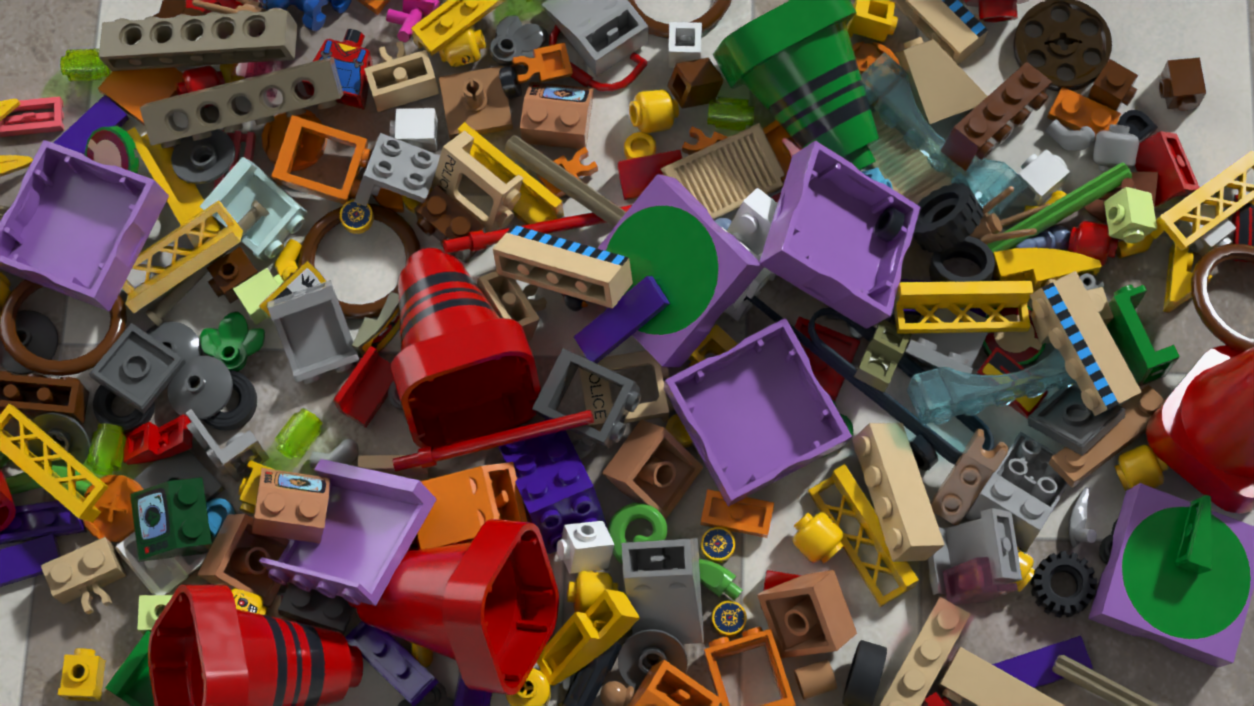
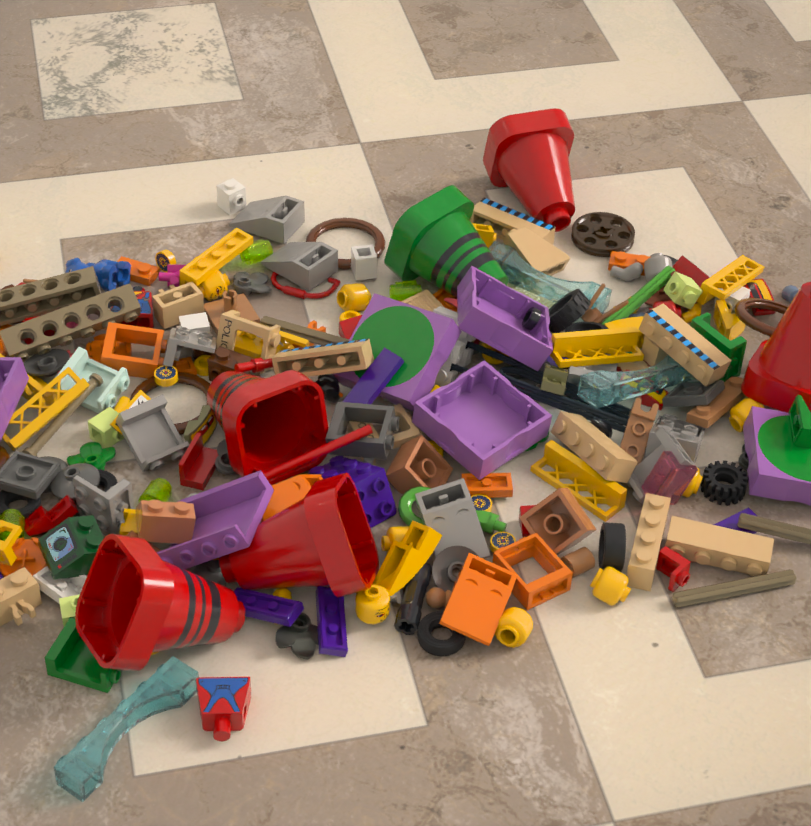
camera: 20 degrees left, 30 degrees down
(90, 684) = (22, 657): yellow brick -> none
(230, 273) = (78, 419): reddish brown brick -> none
(509, 82) = (252, 297): black tile -> none
(548, 63) = (274, 283): orange plate -> none
(556, 115) = (291, 308): nougat slope -> none
(585, 547) = (387, 513): white brick -> none
(695, 82) = (377, 278): reddish brown brick -> none
(817, 537) = (546, 482): yellow head -> none
(996, 116) = (578, 259): reddish brown brick -> none
(1044, 176) = (621, 287): white brick -> none
(1077, 521) = (719, 452): light grey bar -> none
(1114, 86) = (644, 241): reddish brown brick -> none
(1182, 84) = (685, 238): reddish brown brick -> none

